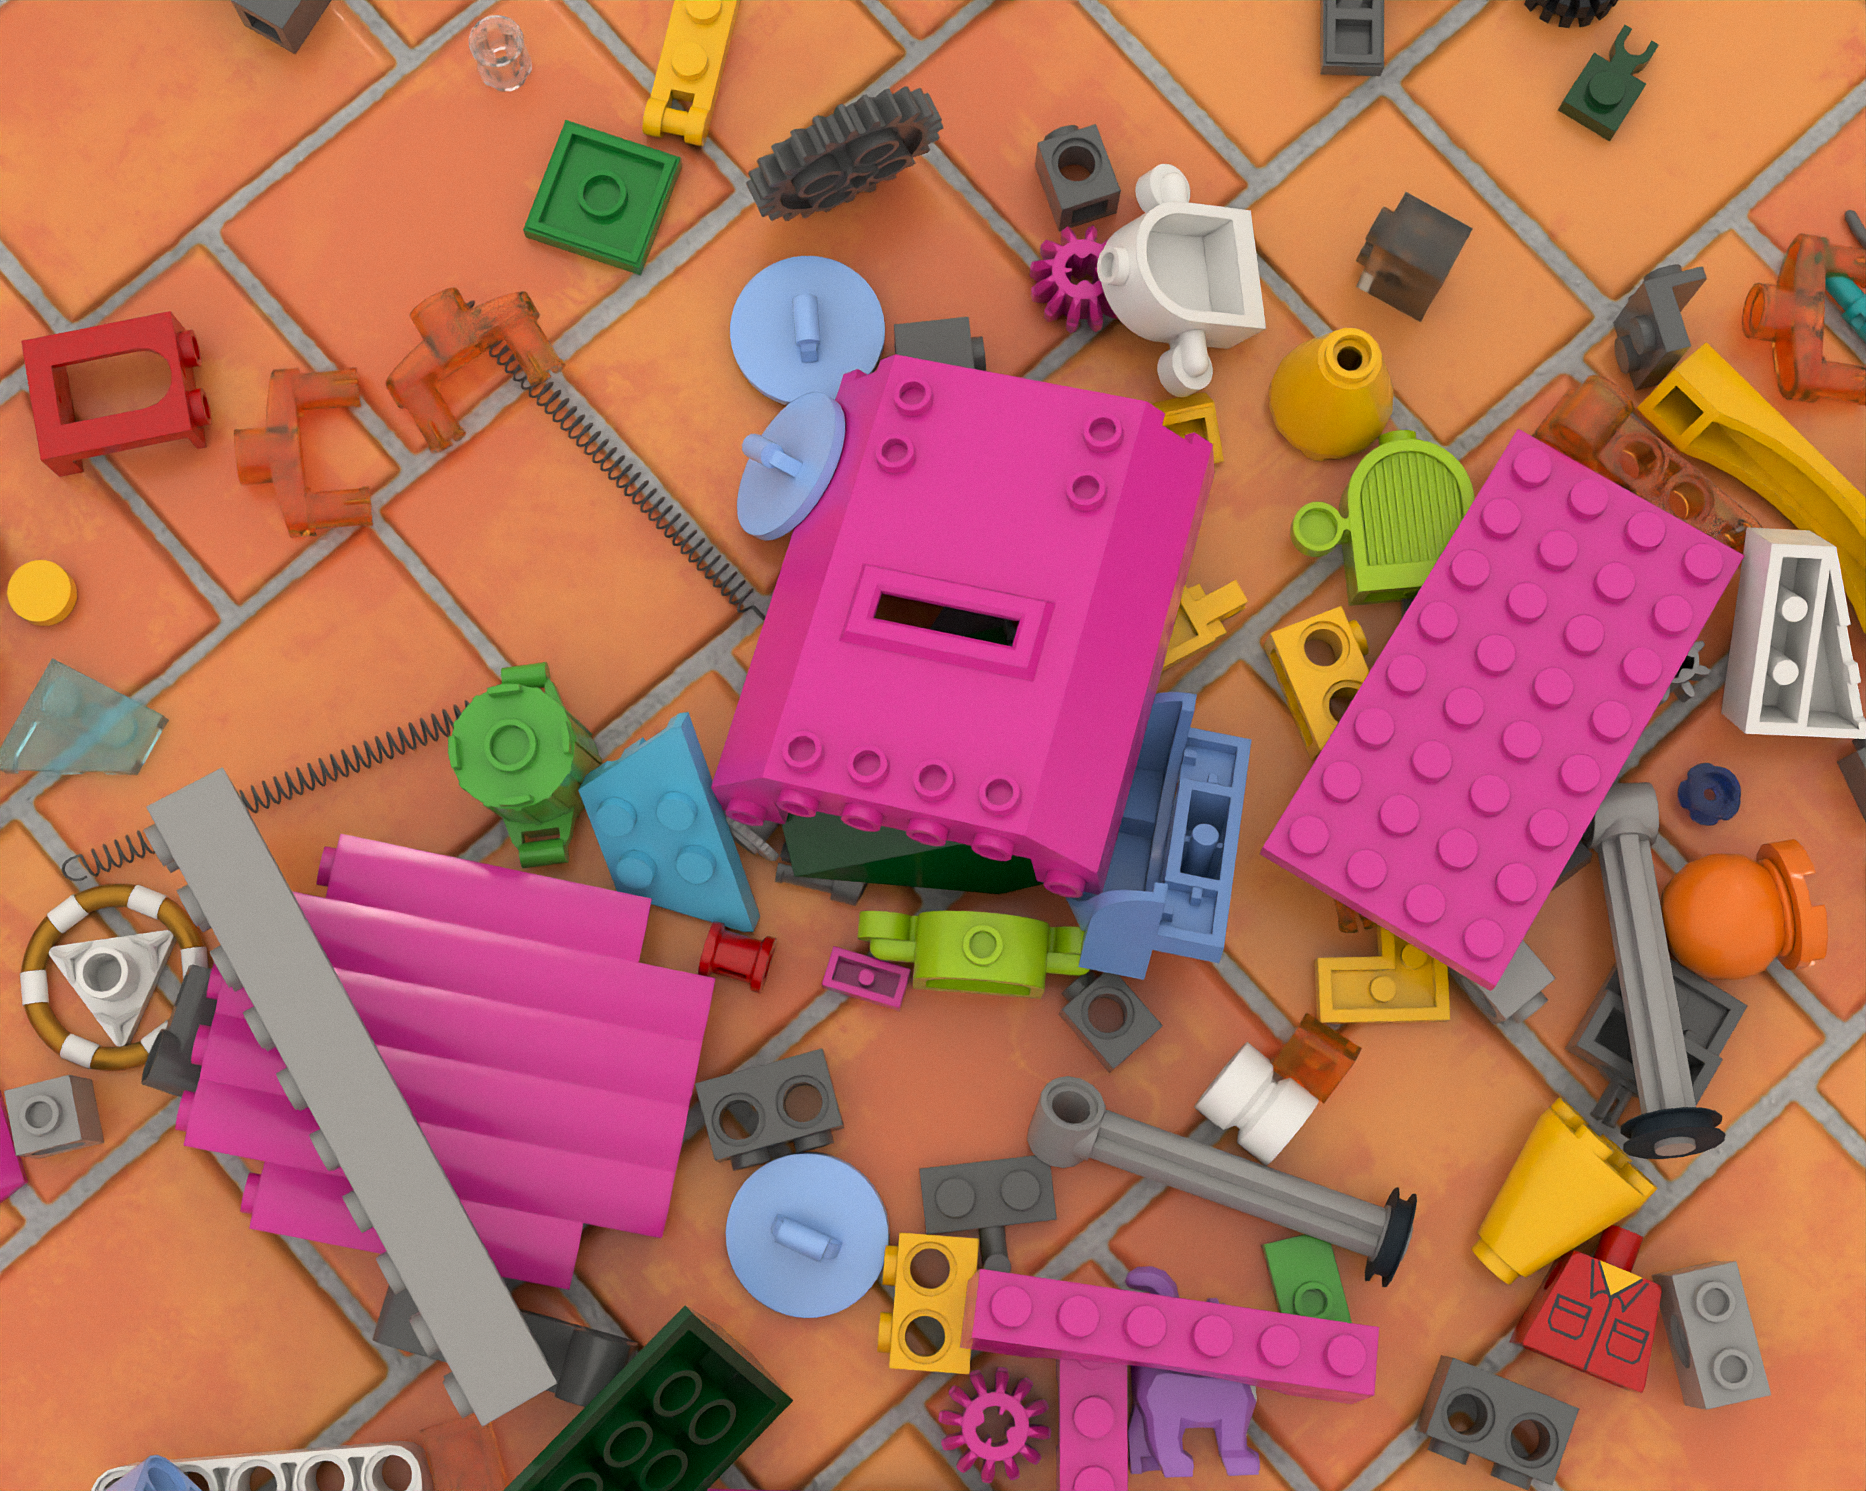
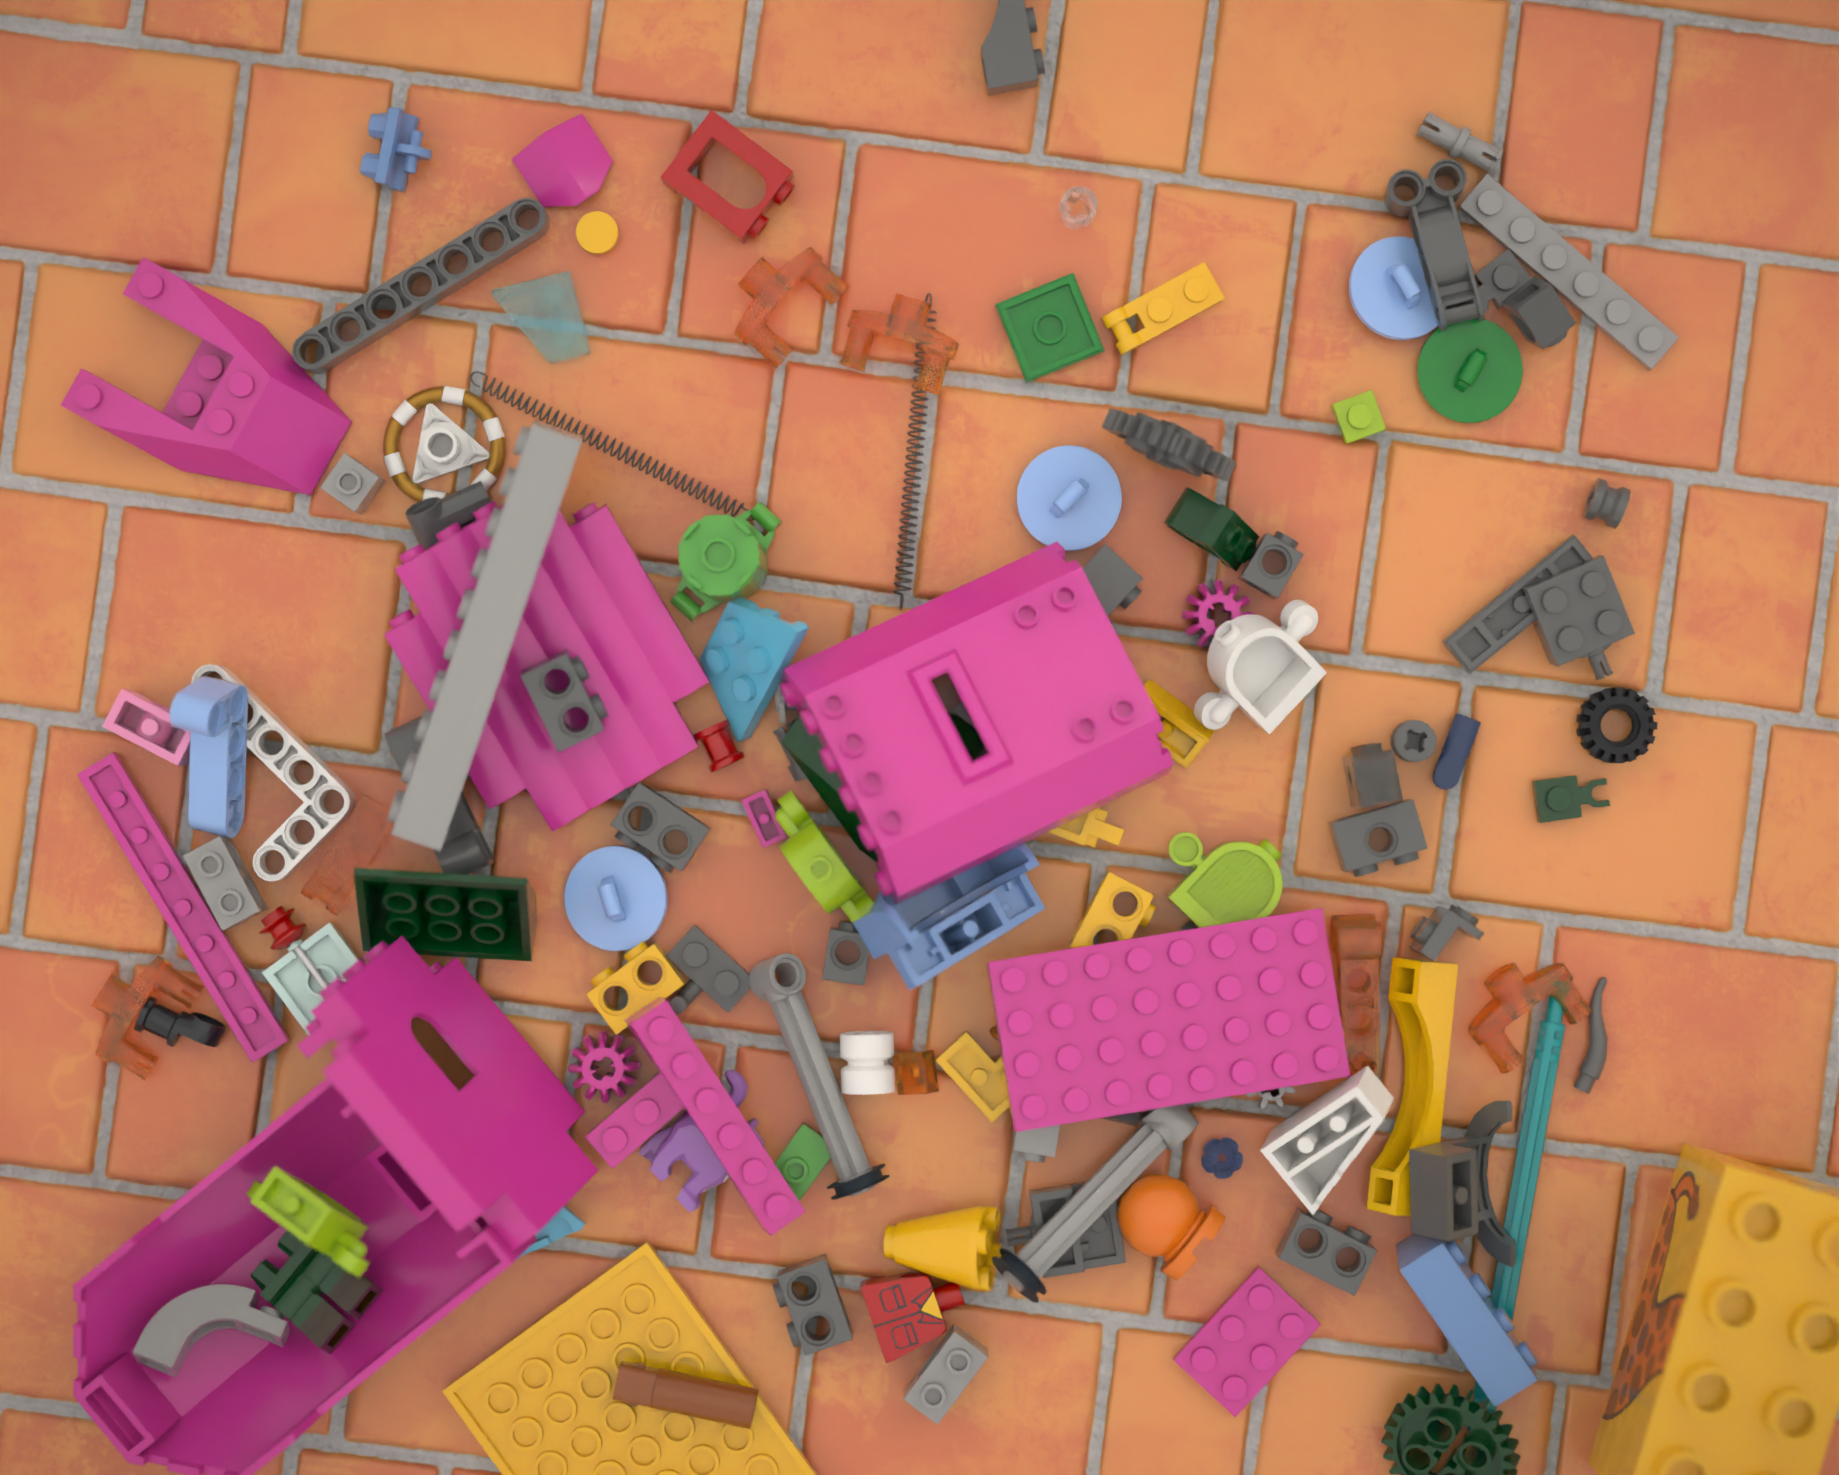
camera: 50 degrees right, 10 degrees up
(513, 1096) = (554, 703): none -> dark grey brick
(790, 465) = (986, 556): light blue shield -> none
(978, 200) = (1212, 528): none -> dark green pin
(1332, 395) = (1248, 791): yellow cone -> none
(1402, 169) = (1403, 739): none -> dark grey wheel
(1456, 157) = (1455, 751): none -> dark blue bar
(1489, 278) = (1352, 833): none -> dark grey brick

